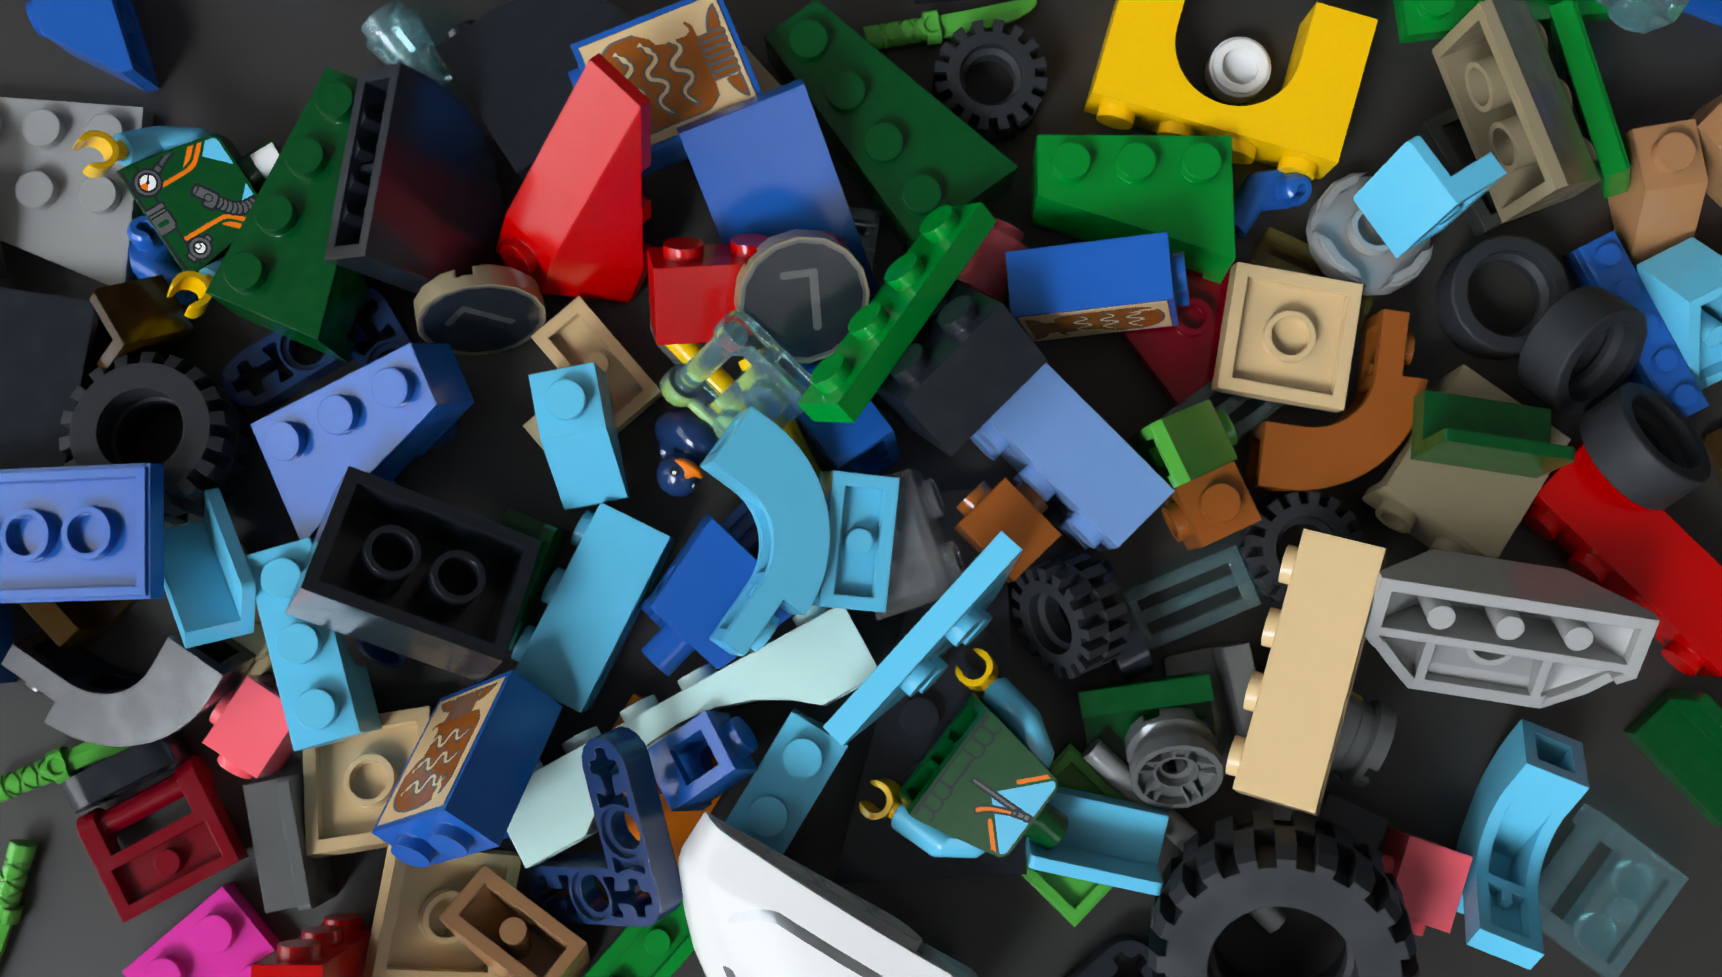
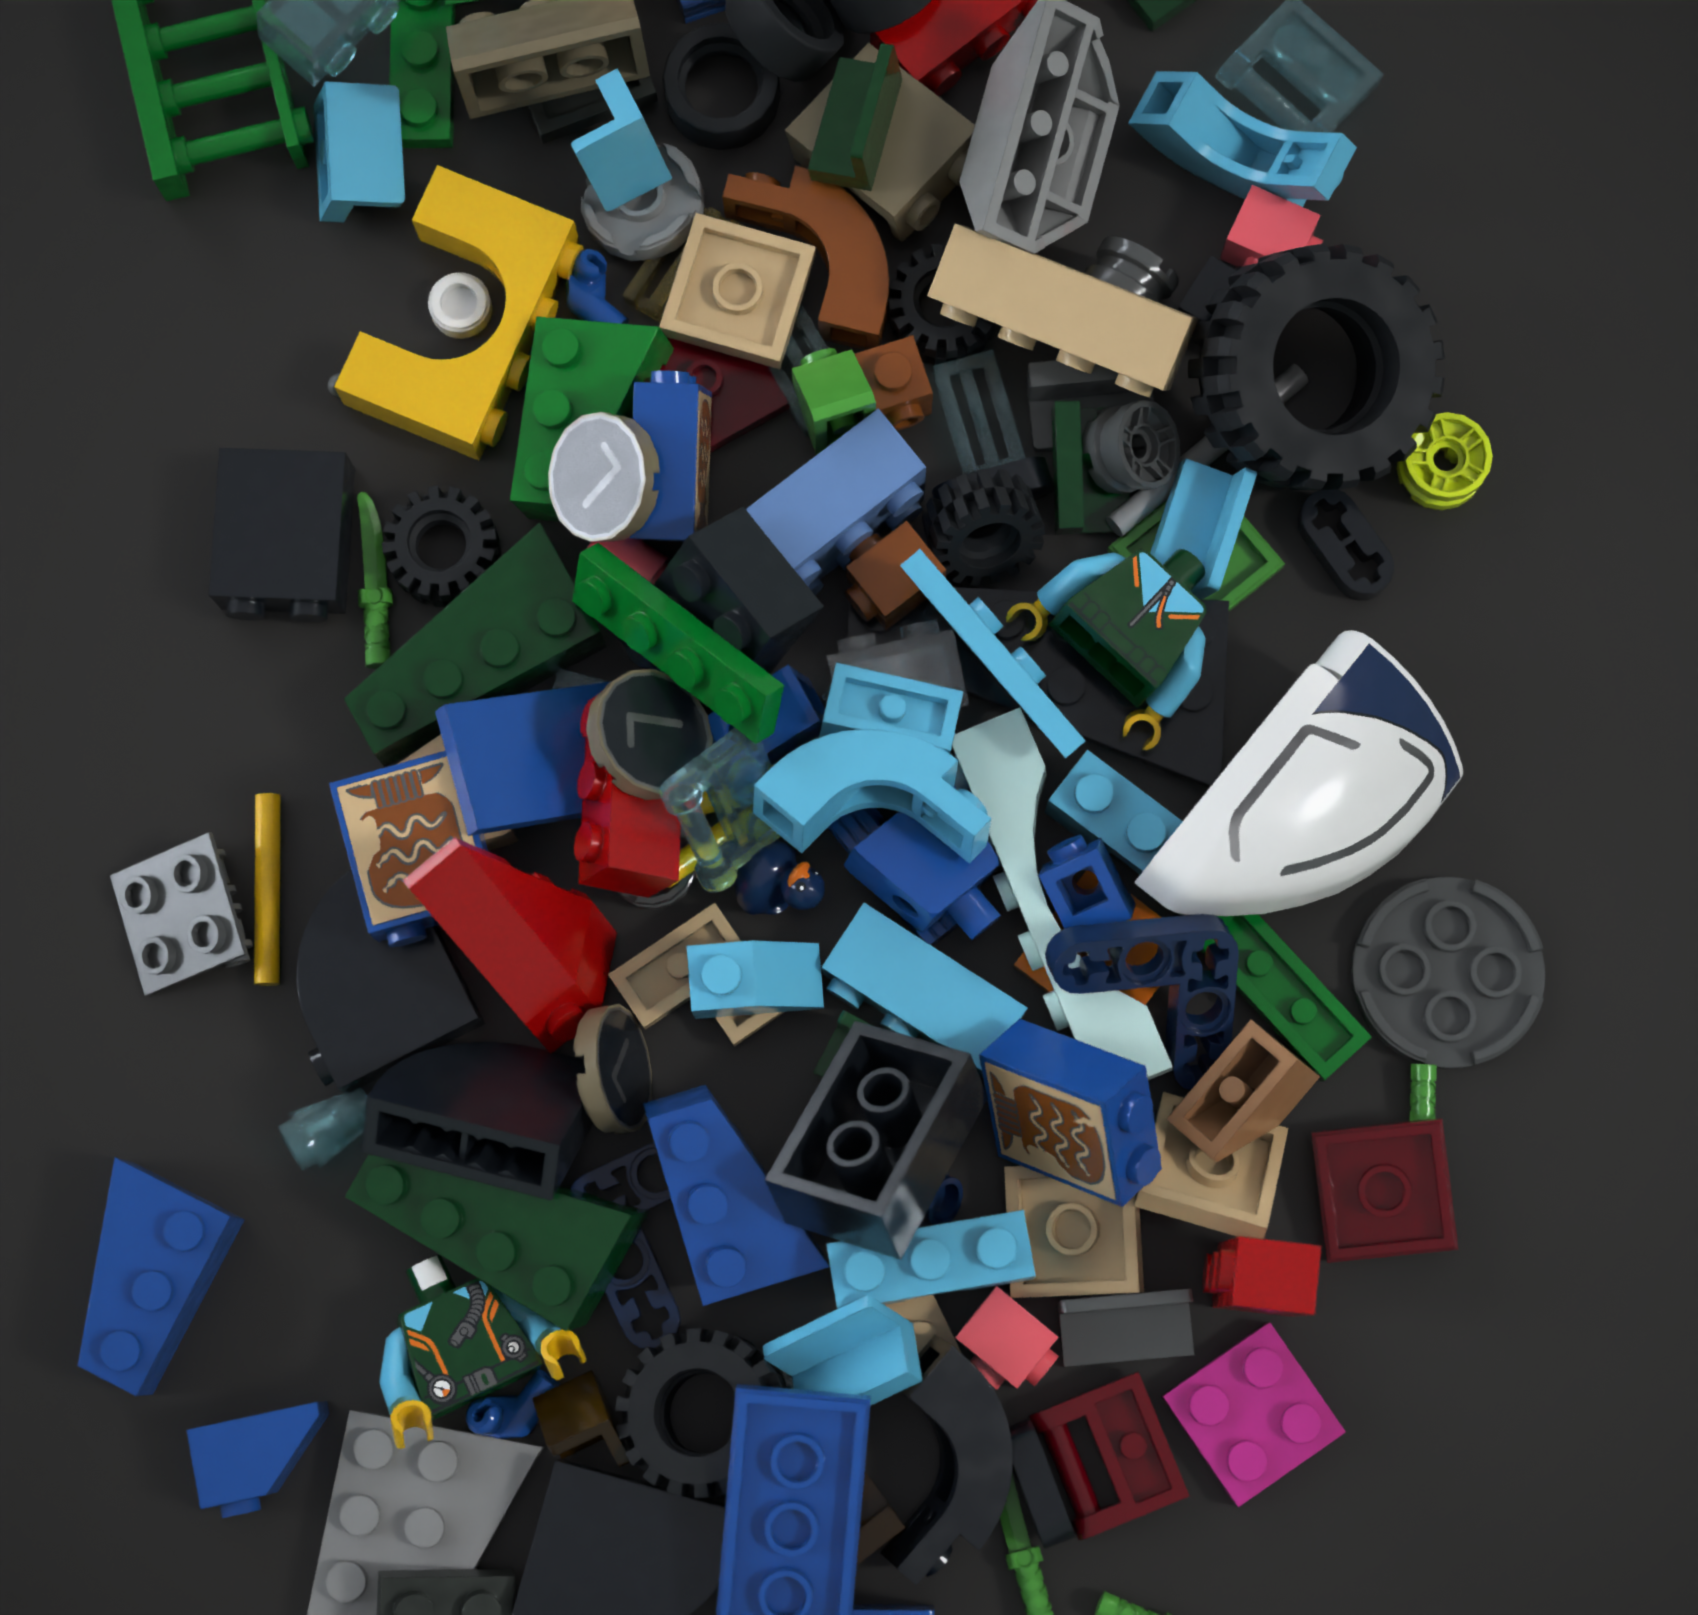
camera: 80 degrees left, 5 degrees down
(1065, 217) = (603, 477): none -> tile

